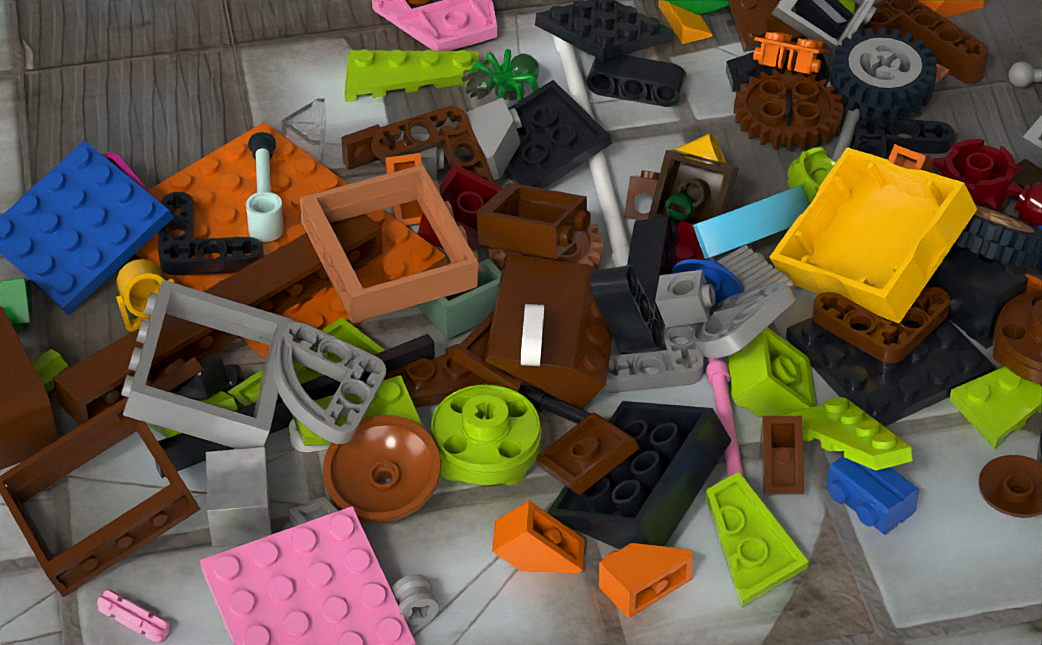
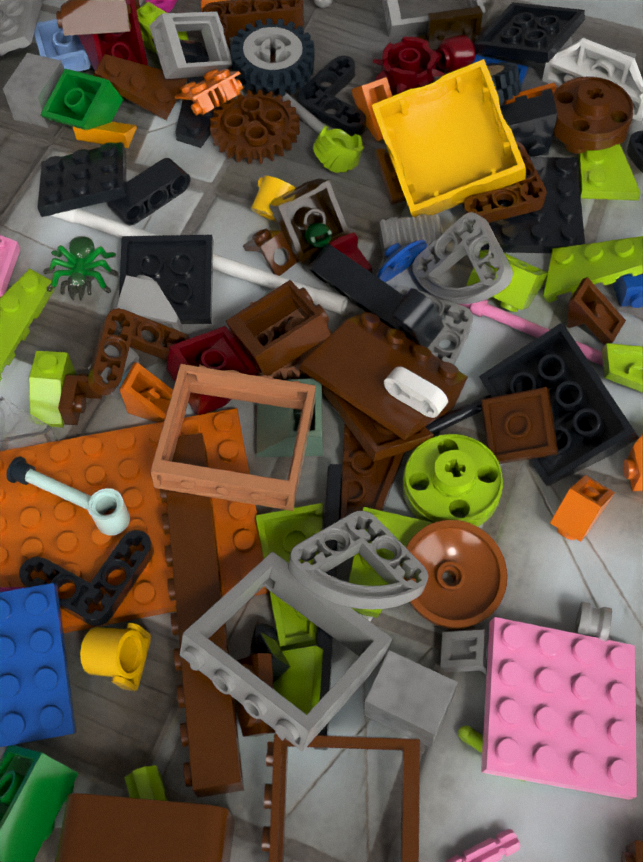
camera: 55 degrees left, 15 degrees up
(359, 116) = (46, 385): none -> lime slope
(684, 298) = (413, 268): light grey brick -> none
(751, 222) = (365, 219): medium azure slope -> none

